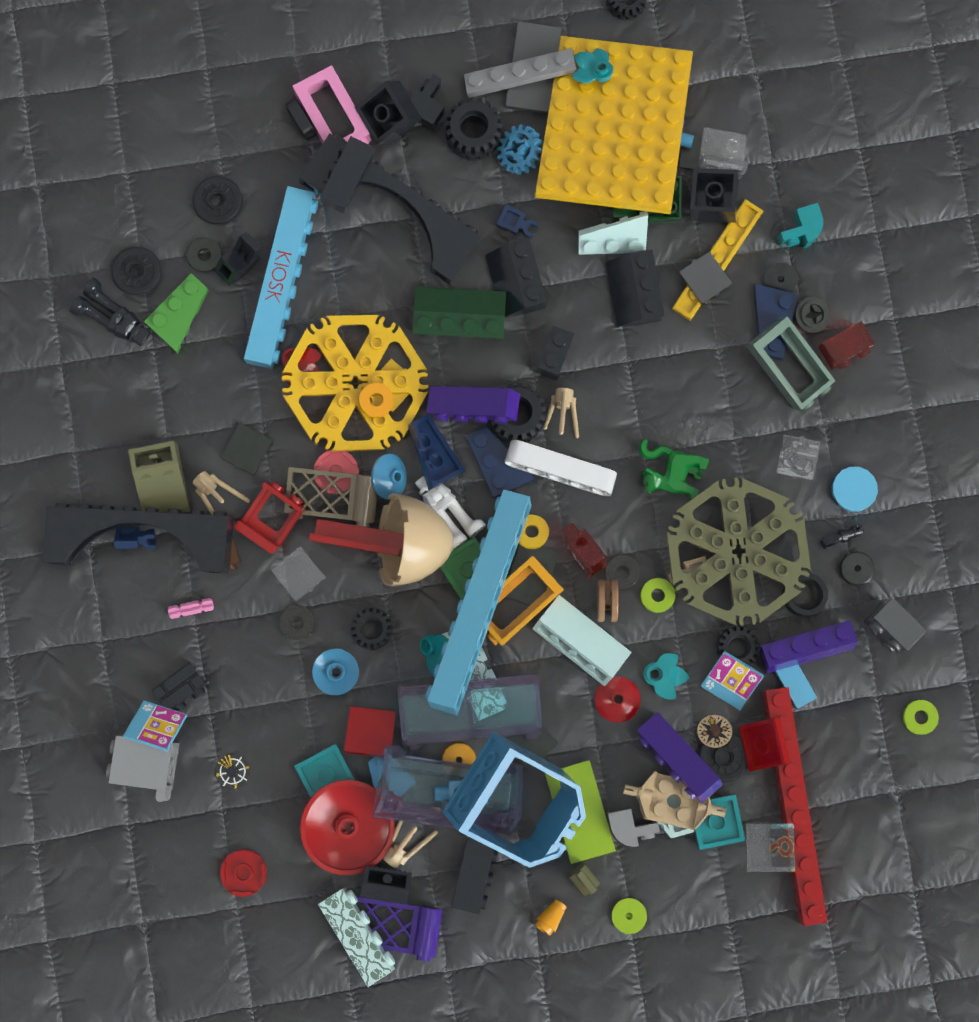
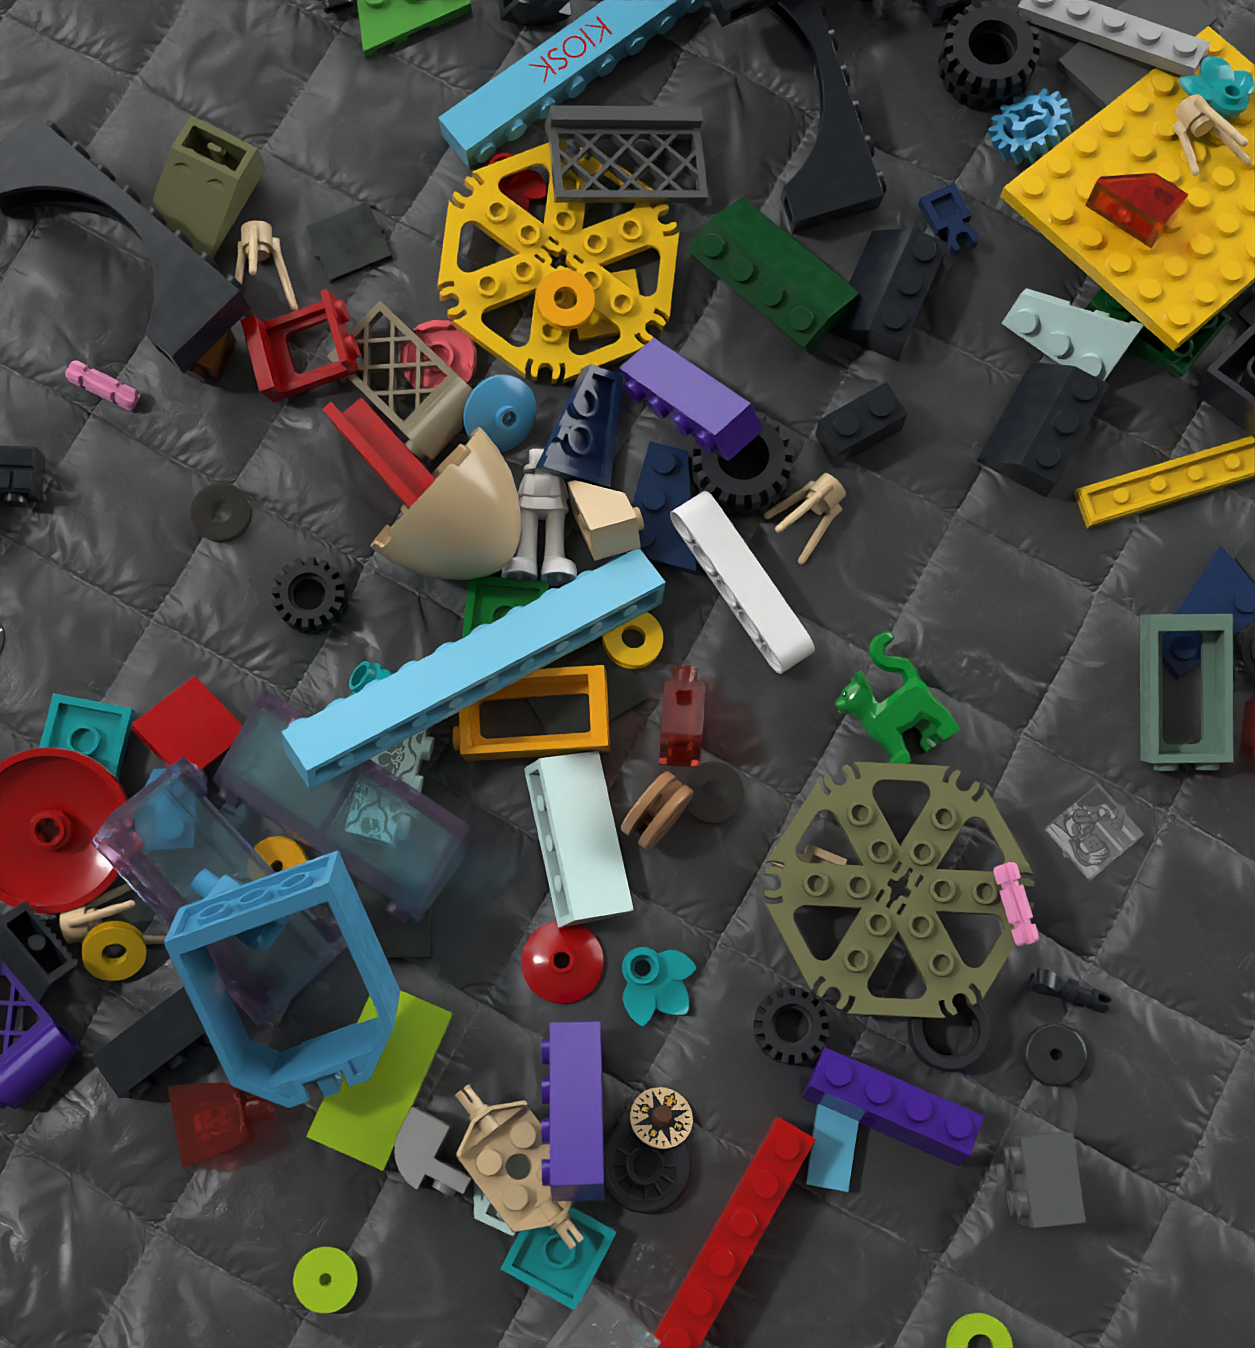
camera: 50 degrees right, 5 degrees down
(132, 536) = (105, 235): dark blue plate -> none
(298, 574) = (278, 451): clear piece -> none
(323, 672) = (200, 601): dark azure dish -> none
(331, 296) = (619, 125): none -> dark grey fence
(412, 851) = (114, 933): none -> yellow piece
(478, 488) = (605, 519): none -> tan slope
(526, 888) = (214, 1119): none -> clear red torso
(550, 917) = (215, 1188): light orange cone -> none
(584, 879) = (303, 1172): olive piece -> none
(596, 92) = (1199, 118): none -> tan plant
(604, 157) = (1138, 204): none -> clear red slope
(649, 603) = (722, 877): lime piece -> none
(705, 278) = (1155, 483): dark grey piece -> none
(732, 680) = (744, 1065): piece -> none
(764, 744) = (714, 1193): red tile -> none
(794, 518) = (1016, 904): none -> bright pink axle
(854, 489) = (1141, 939): medium azure tile -> none

